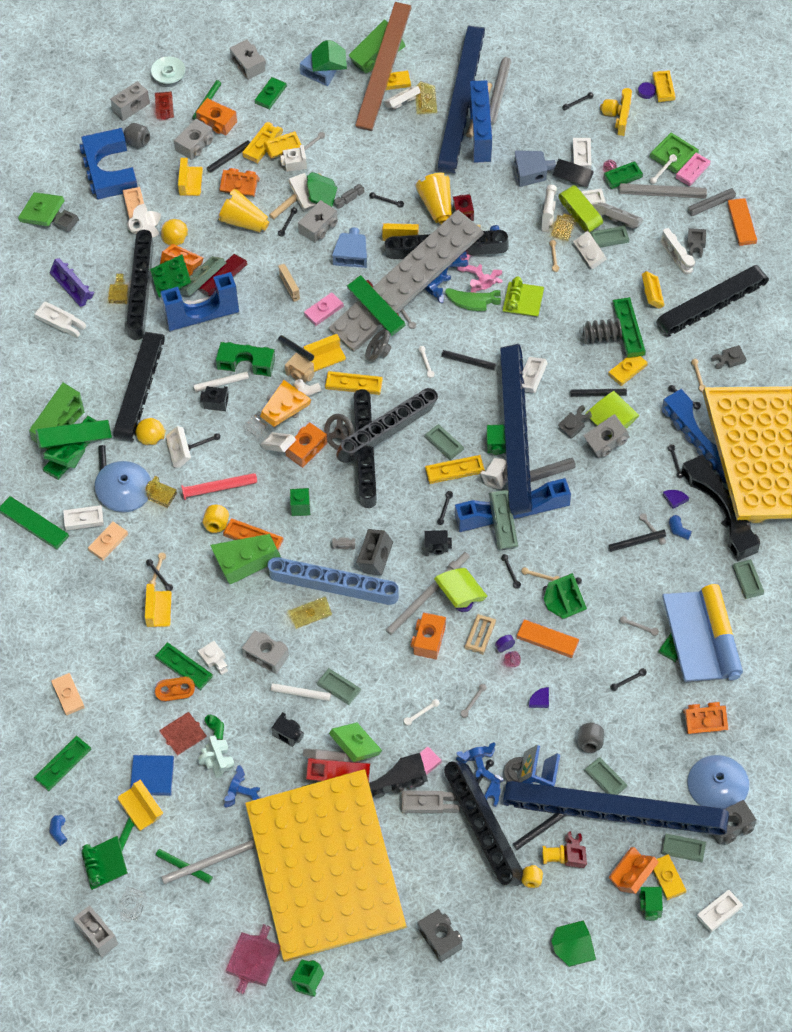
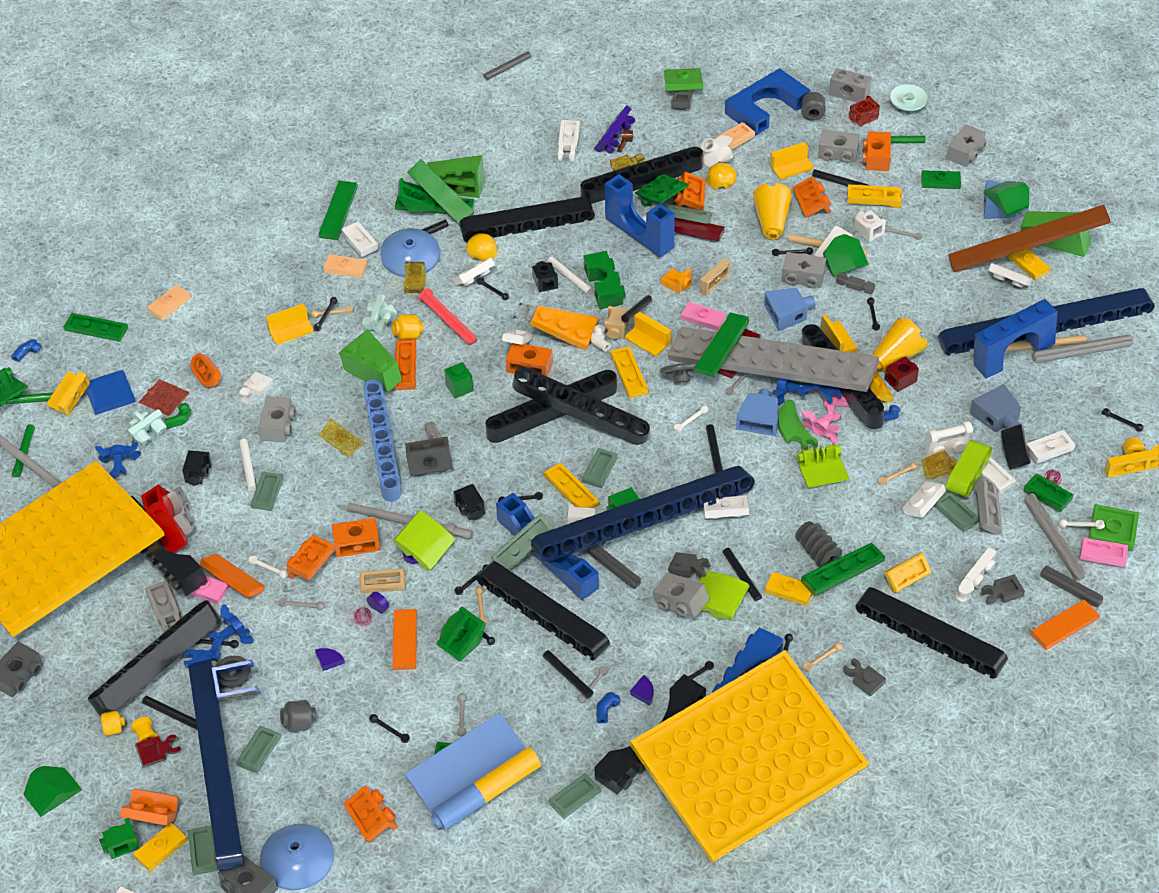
camera: 65 degrees right, 10 degrees down
(83, 275) = (627, 135): none -> reddish brown hand
(179, 531) = (380, 315): none -> light aqua hips
(183, 665) = (236, 370): green tile -> none
(274, 310) = (676, 280): none -> light orange bracket
(277, 145) = (880, 208): yellow plate -> none
(341, 431) = (561, 374): dark grey piece -> none
(355, 742) = (203, 521): bright green plate -> none
(421, 740) = (232, 575): none -> orange tile
(426, 99) = (1026, 296): clear yellow slope -> none
(436, 675) = (309, 558): none -> orange bracket
(451, 313) = (758, 413): none -> medium blue torso
(569, 532) = (543, 609): none -> black beam

